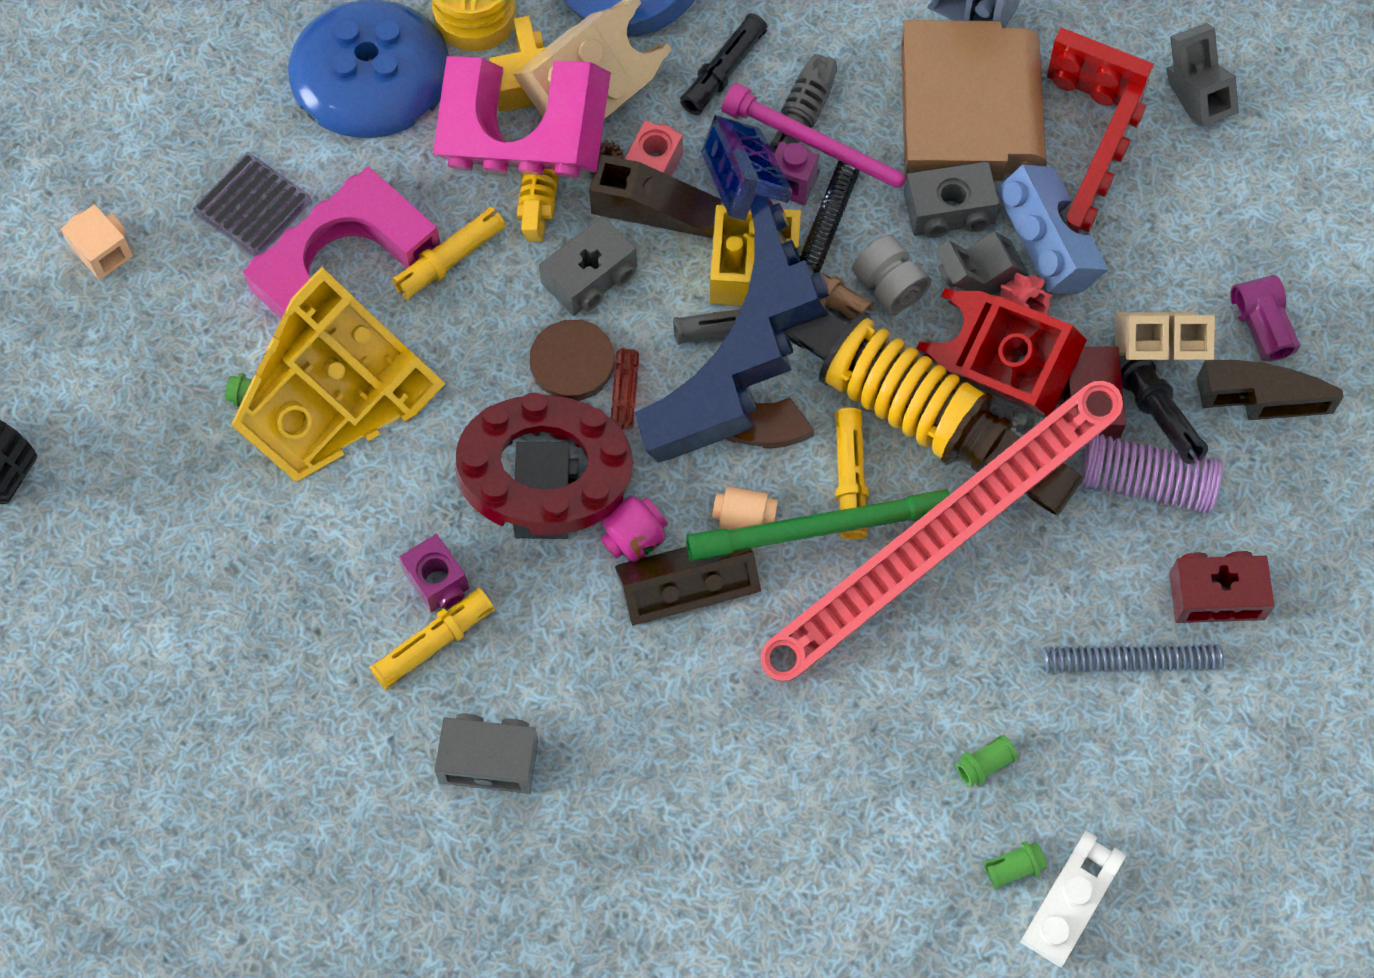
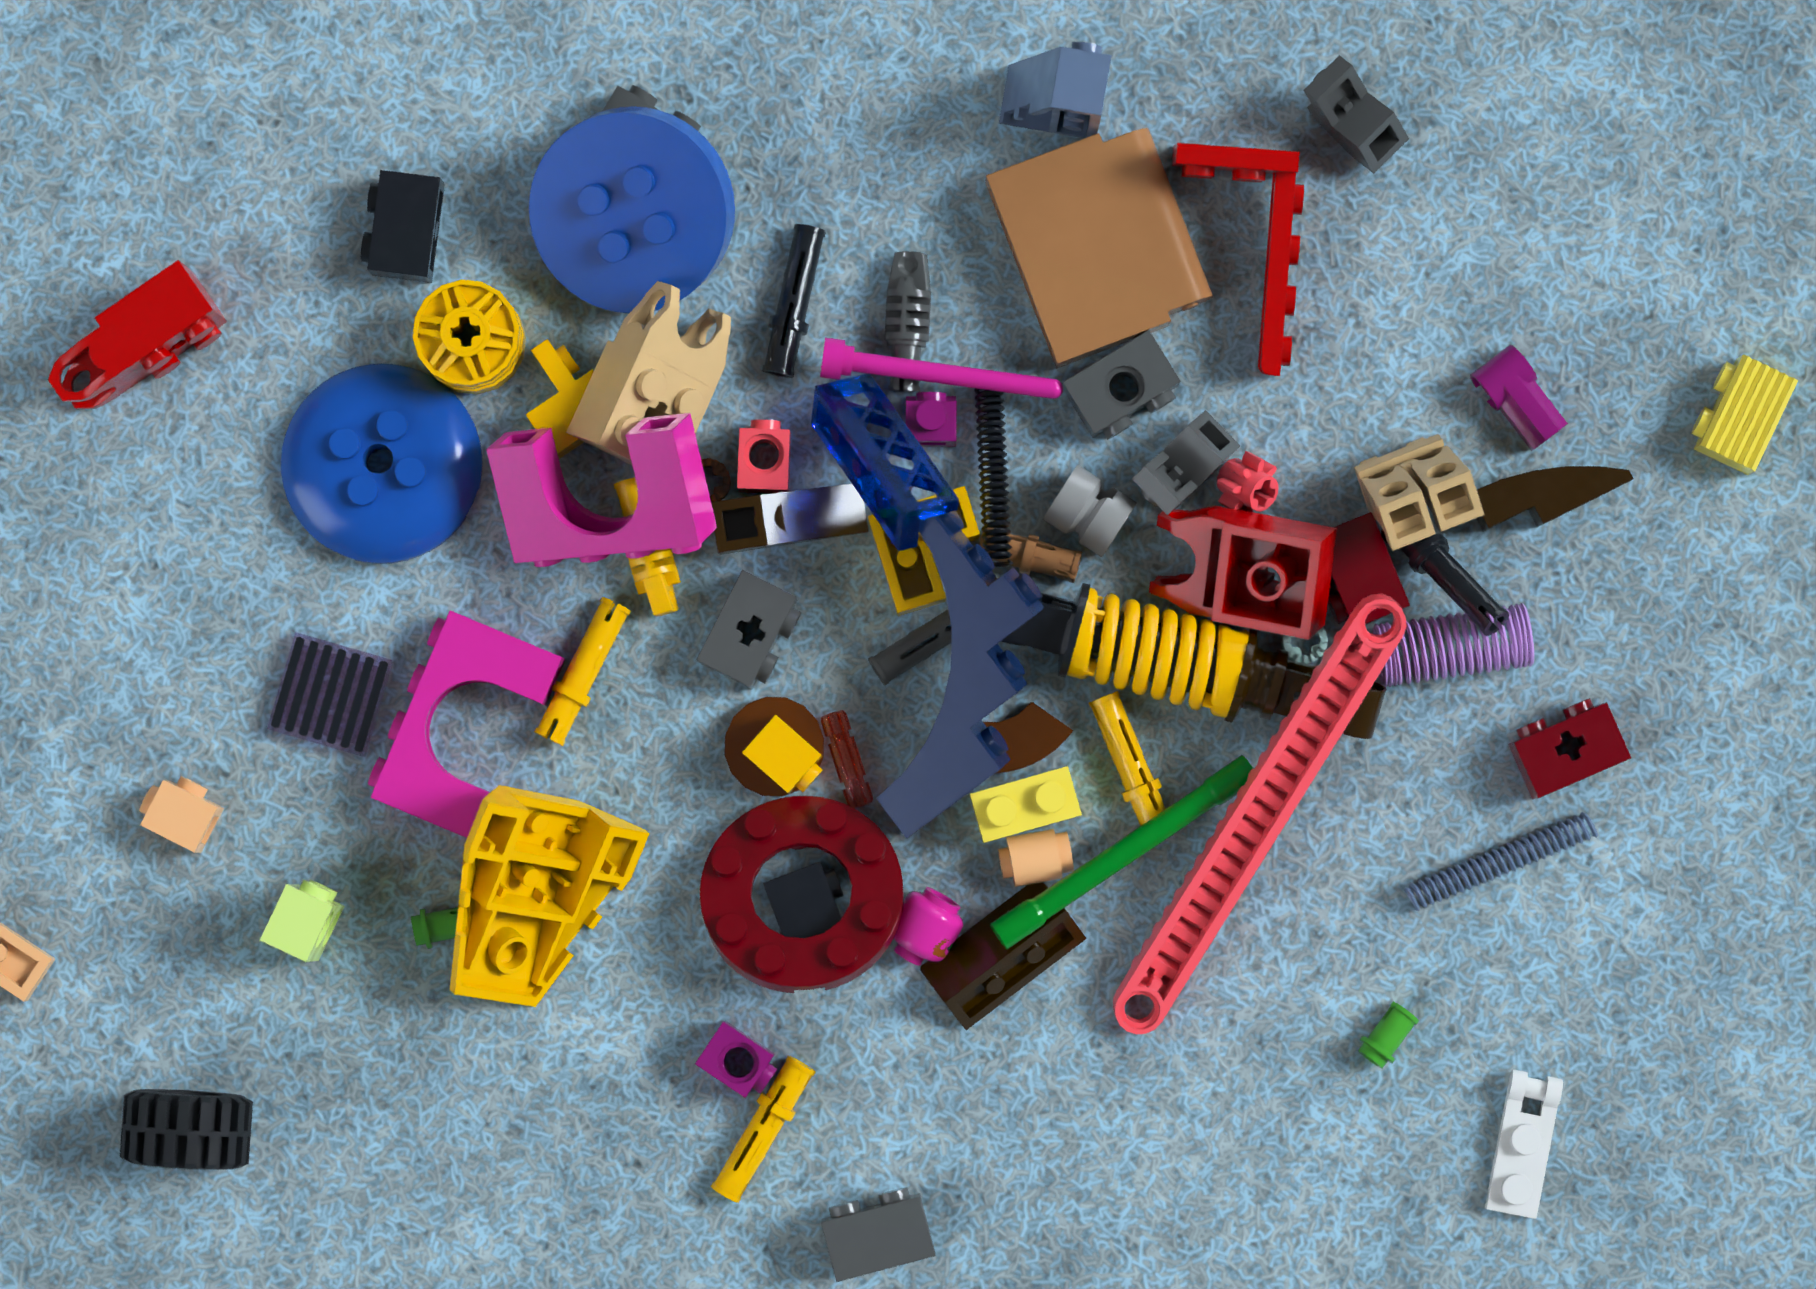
camera: 20 degrees left, 20 degrees up
(145, 337) = (303, 920): none -> yellowish green brick
(575, 356) = (784, 756): none -> yellow brick
(753, 464) = (1025, 804): none -> light yellow brick
(1015, 865) = (1454, 1134): bright green pin -> none
(1061, 256) = (1263, 415): medium blue arch -> none

